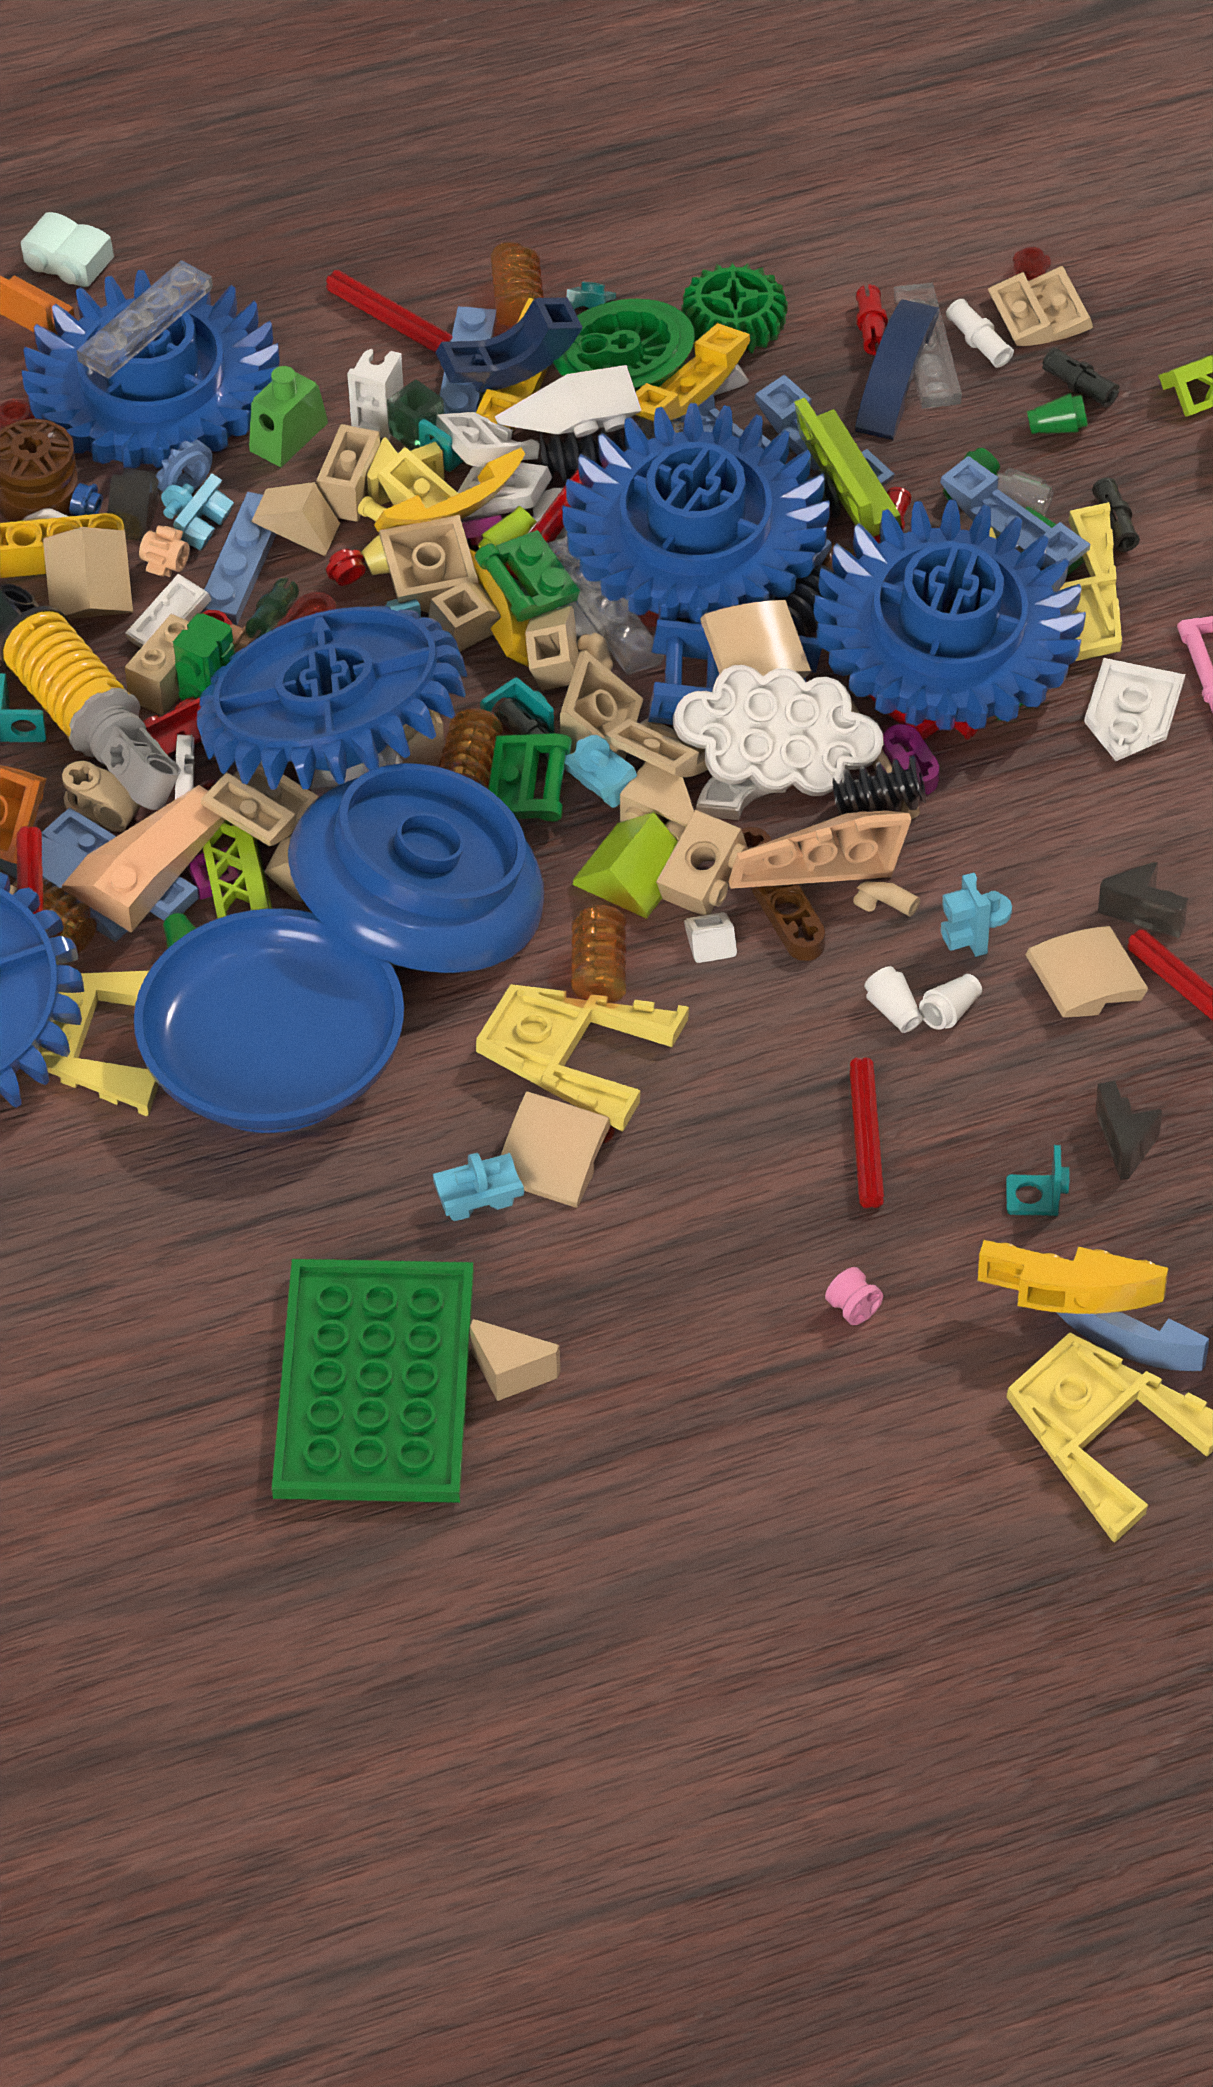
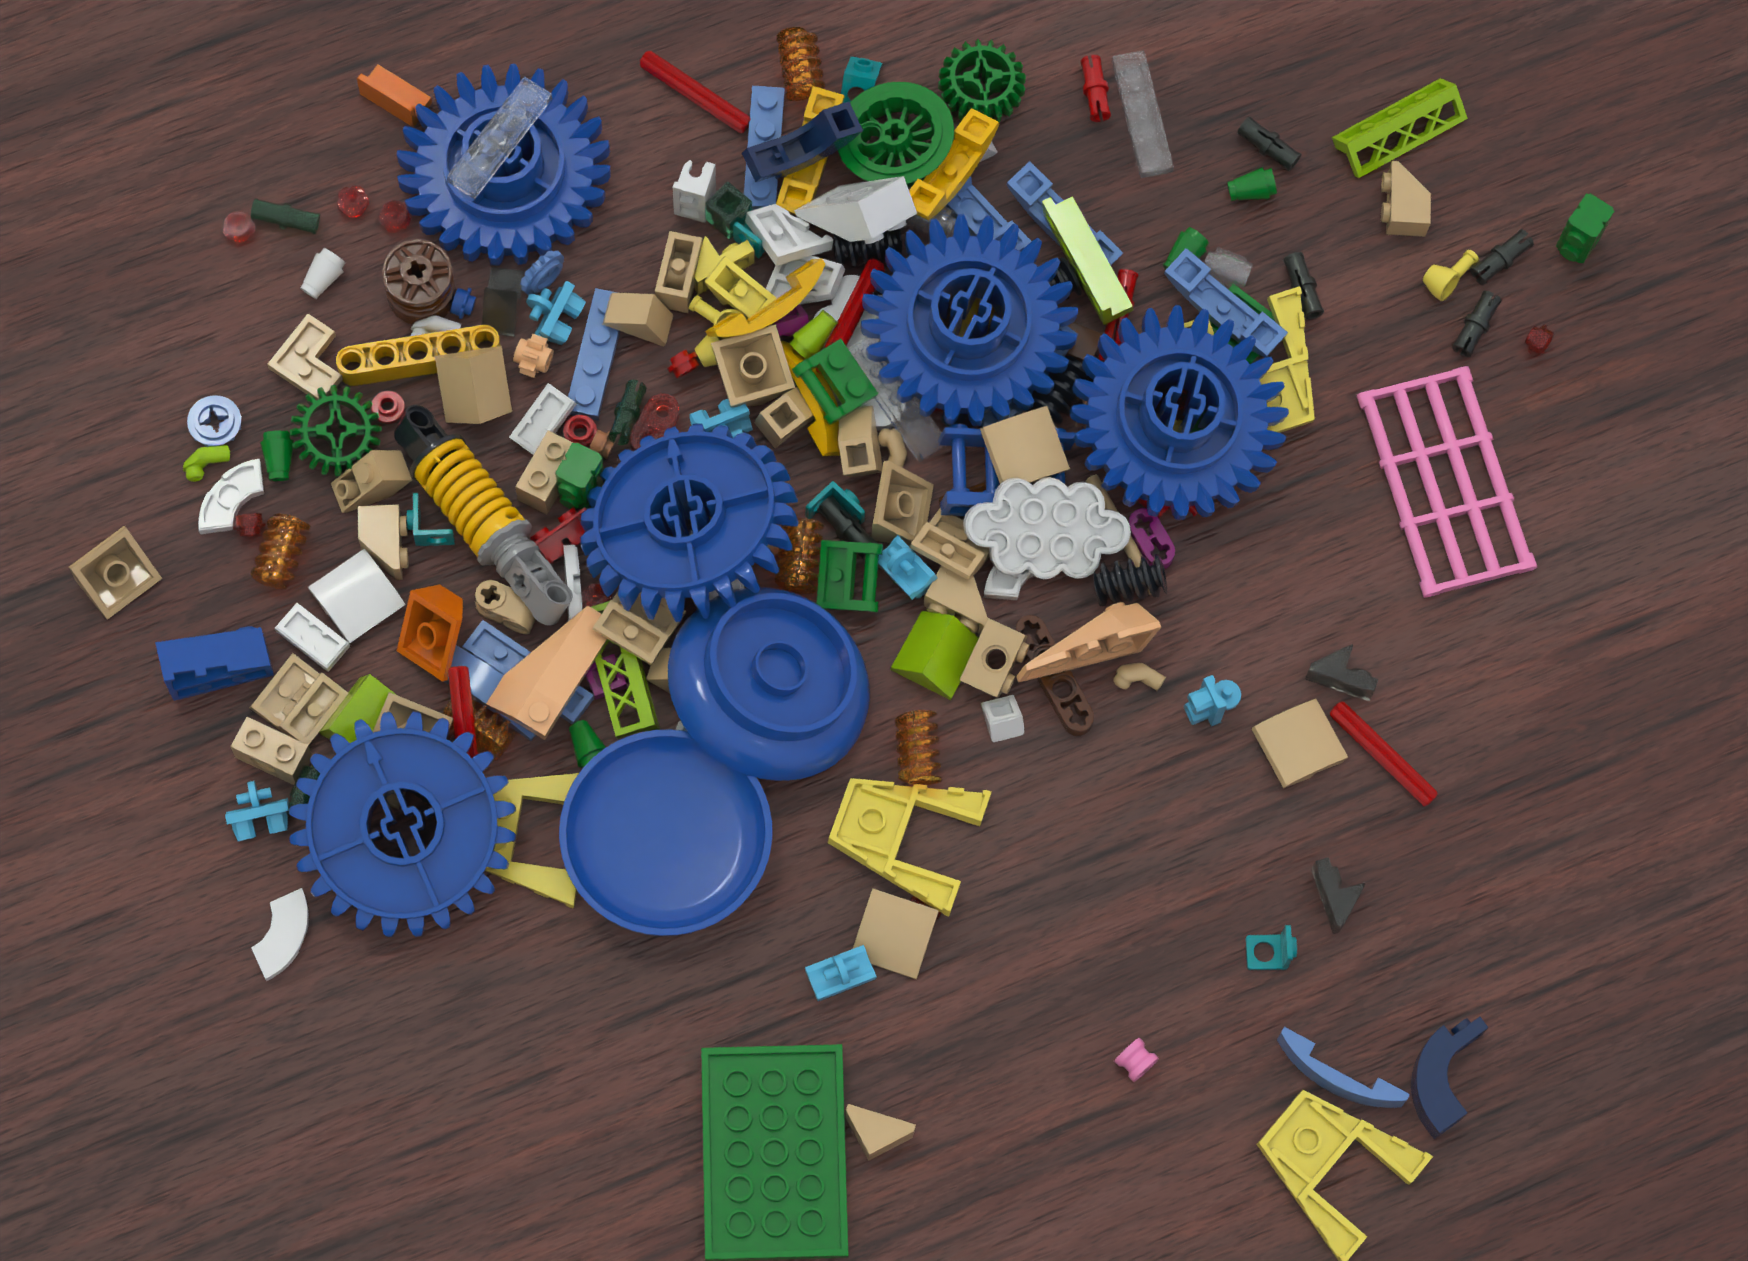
camera: 10 degrees left, 20 degrees up
(67, 249) = (419, 36): light aqua brick -> none
(285, 416) = (624, 210): bright green torso -> none
(866, 1133) = (1136, 902): red axle -> none
(893, 997) = (1151, 777): white cone -> none
(894, 368) = (1119, 142): dark blue slope -> none
(948, 1002) = (1194, 778): white cone -> none
(979, 333) = (1184, 99): white pin -> none
(1031, 262) = (1219, 29): clear red plate -> none
(1040, 308) = (1232, 69): tan slope -> none
(1087, 1285) = (1320, 1055): yellow slope -> none
(1132, 706) = (1324, 479): white tile -> none

